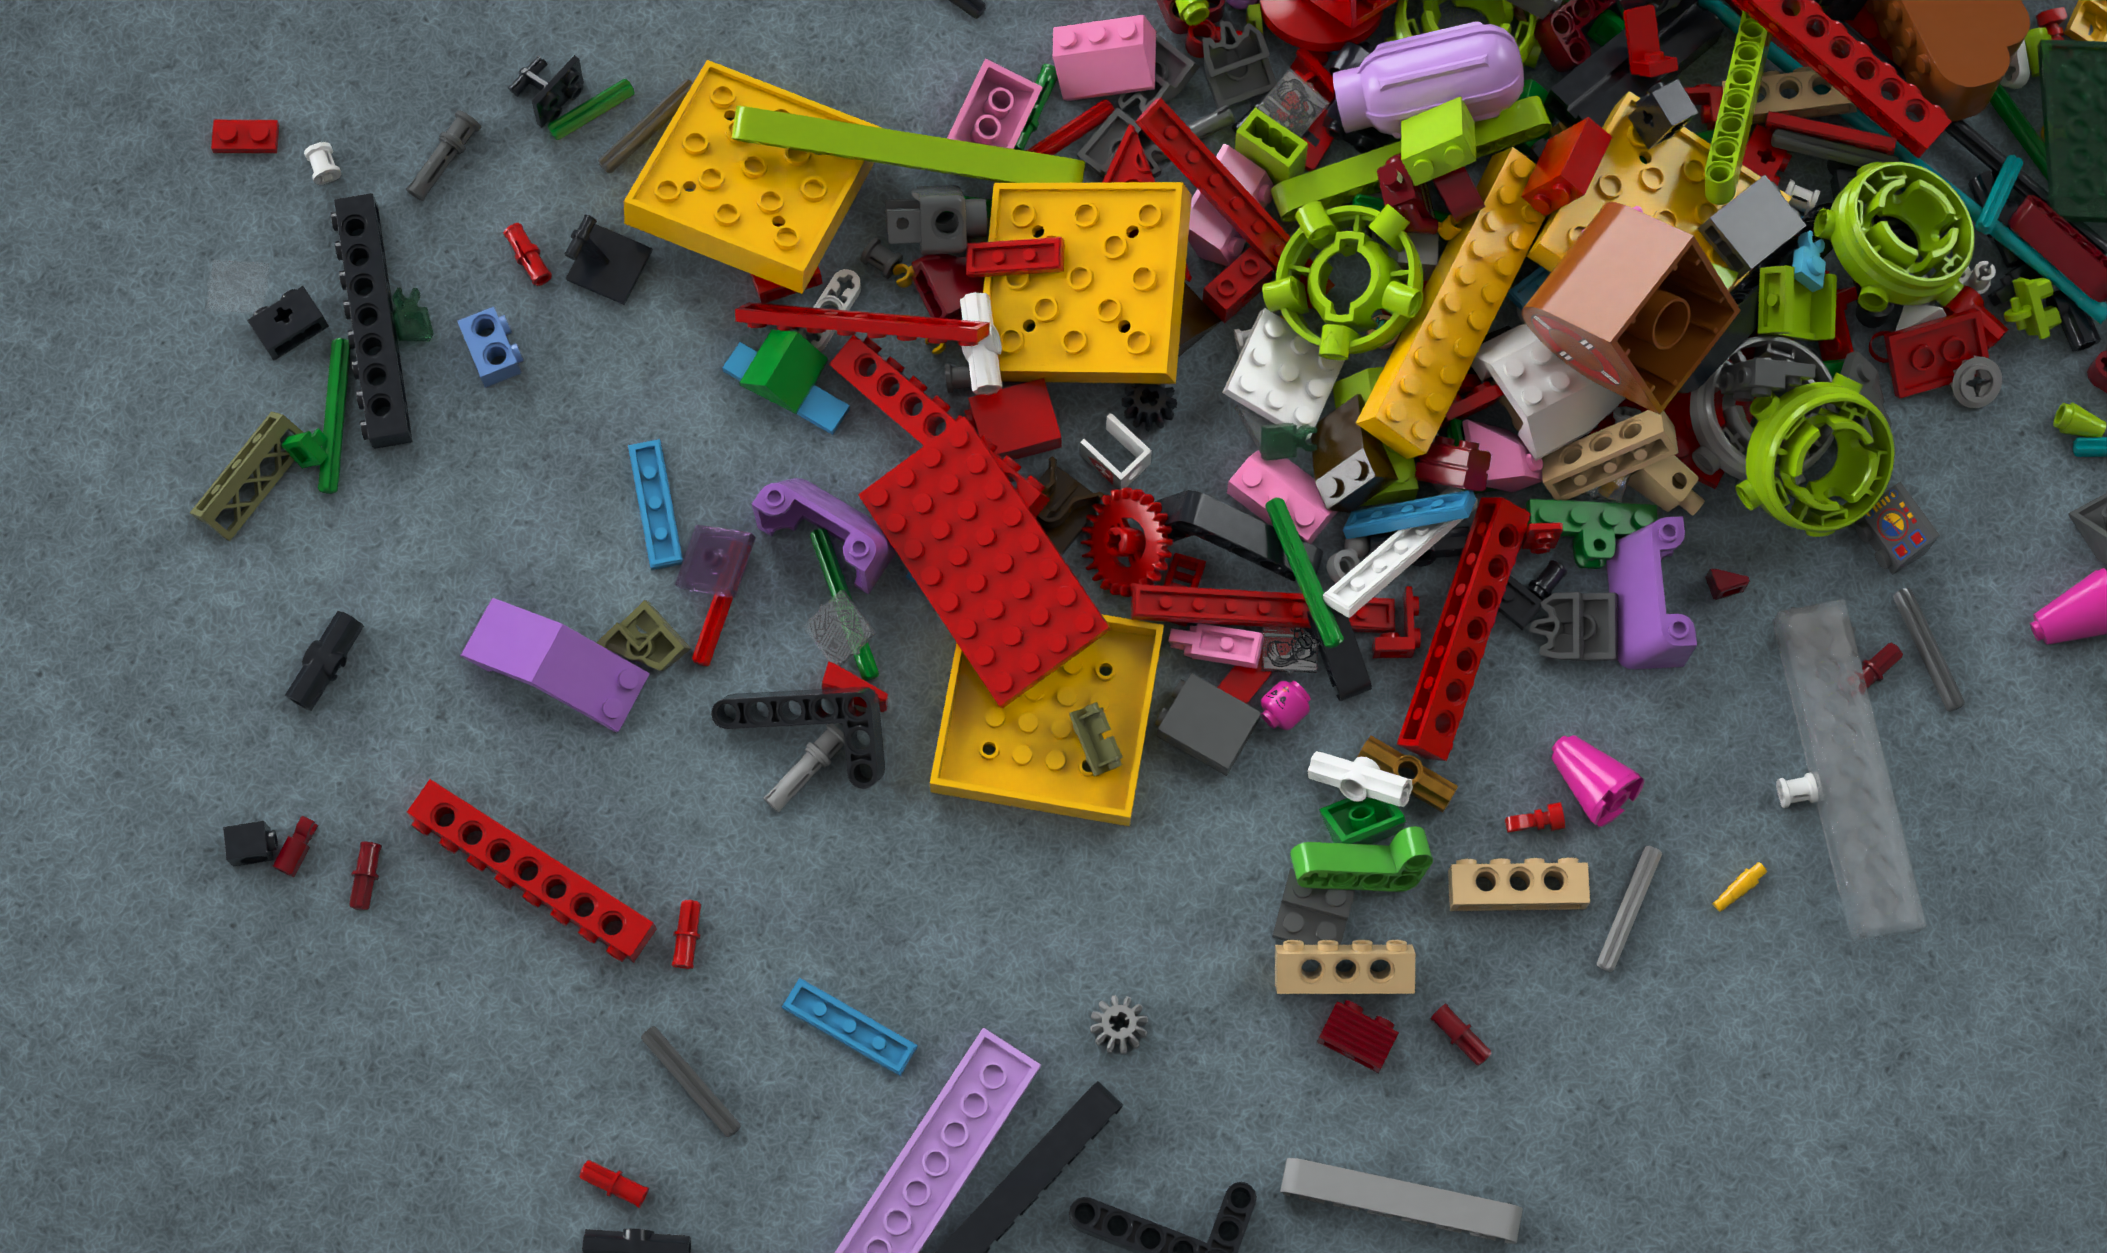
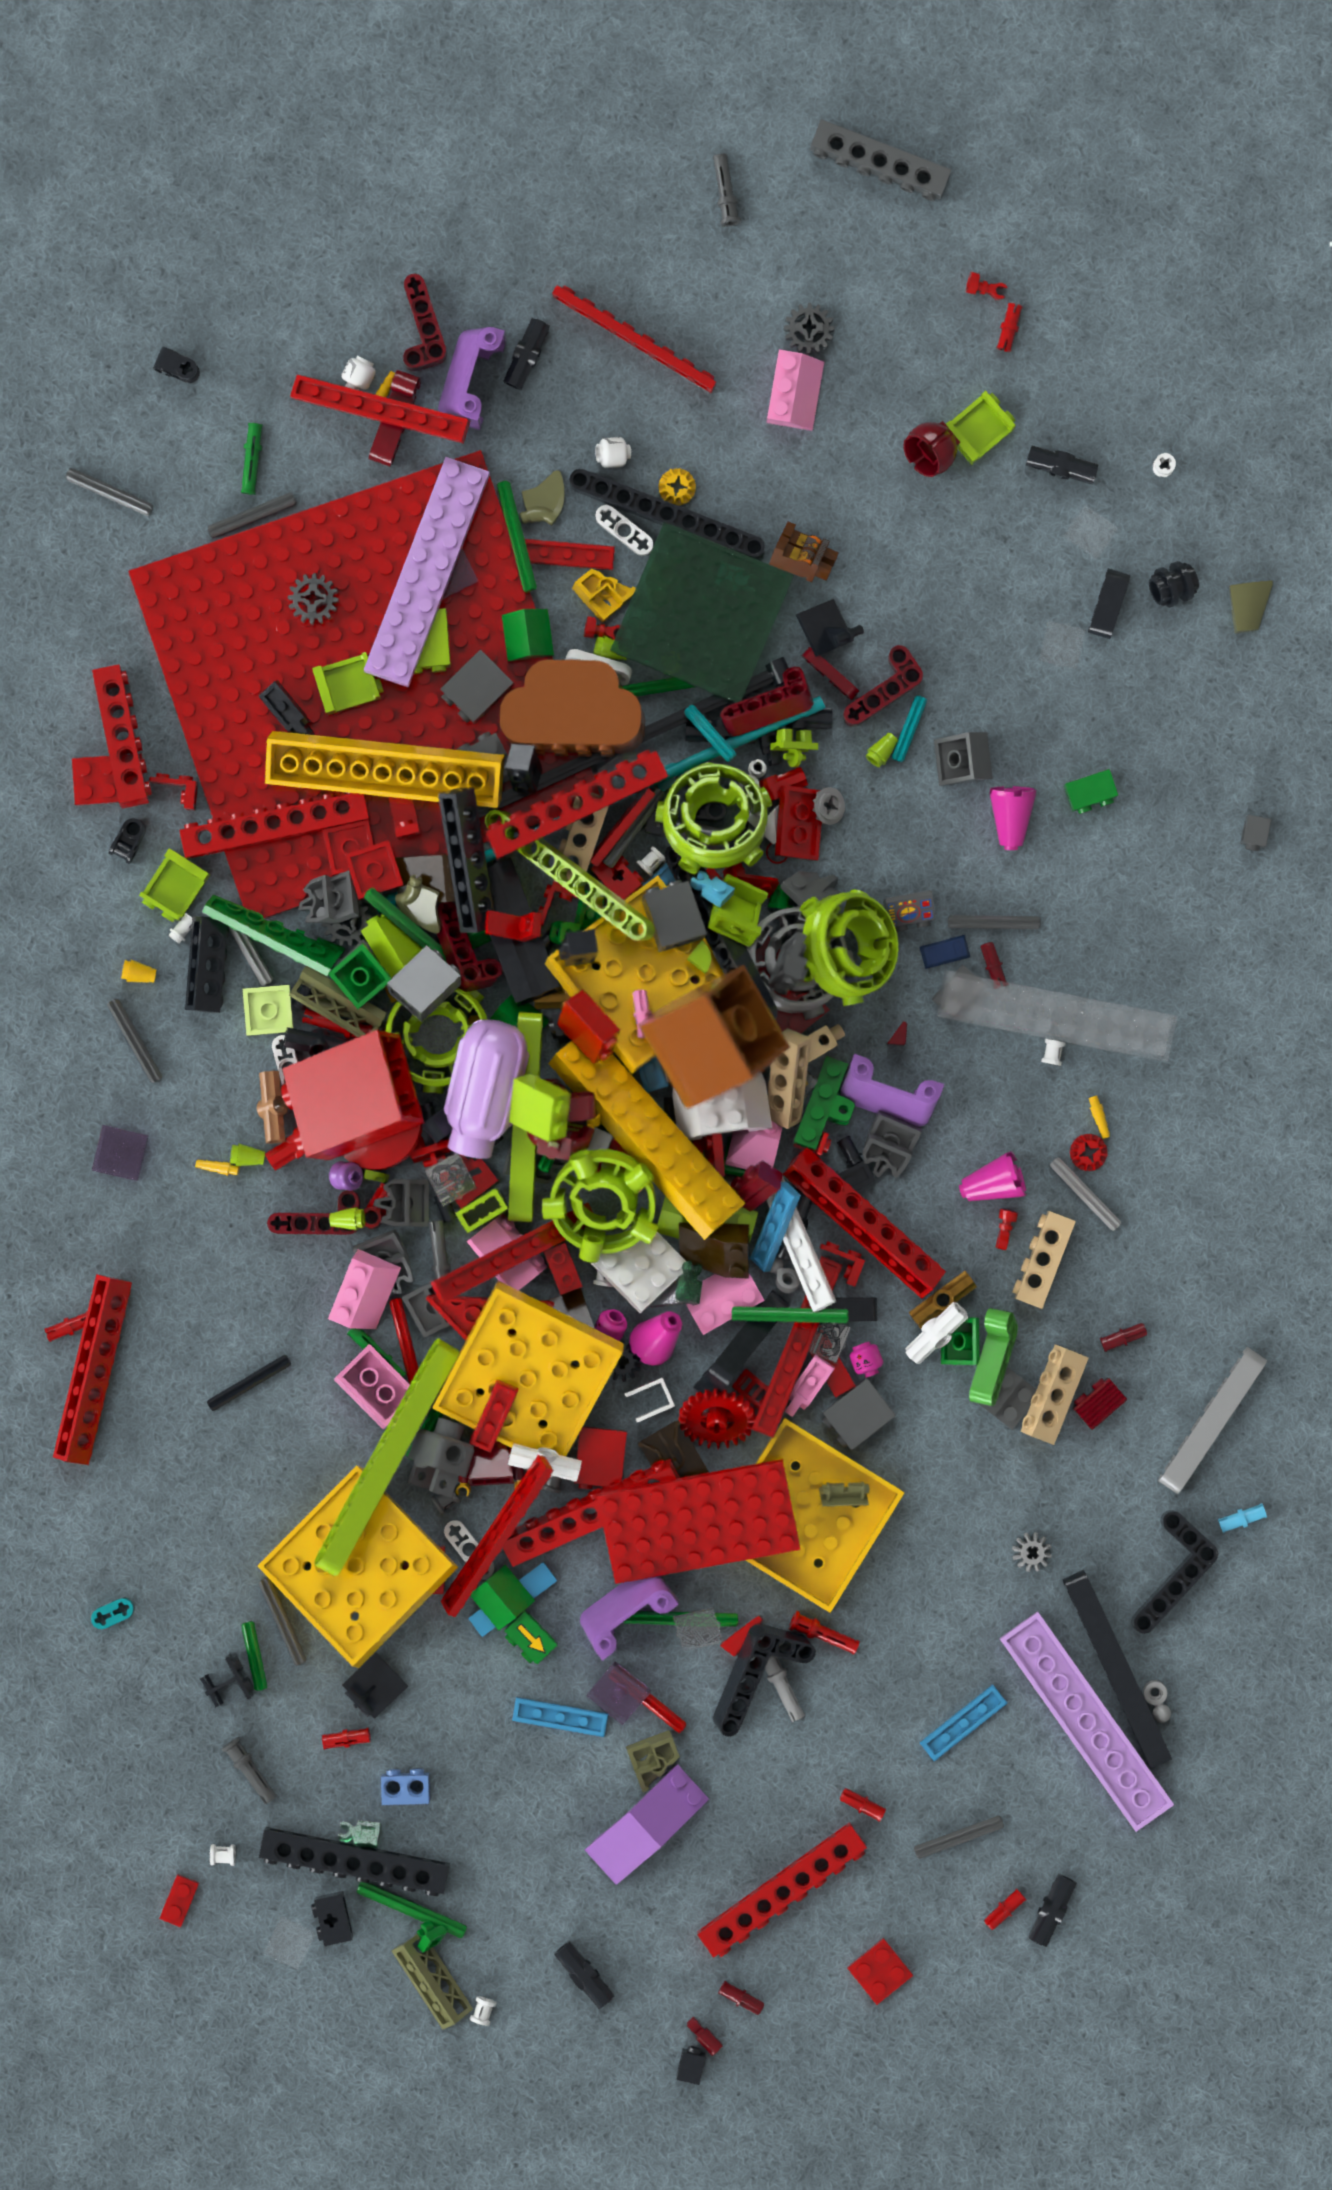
camera: 65 degrees left, 15 degrees up
(231, 551) = (483, 2011): none -> white bush
(467, 1047) = (880, 1971): none -> red plate
(745, 425) = (530, 1638): none -> green brick
(898, 777) = (813, 1629): none -> red pin
(1193, 369) = (612, 1324): none -> dark pink head
(1199, 426) = (656, 1338): none -> dark pink cone
(1687, 906) = (1083, 1162): none -> red gear
(1860, 603) = (944, 951): none -> dark blue tile

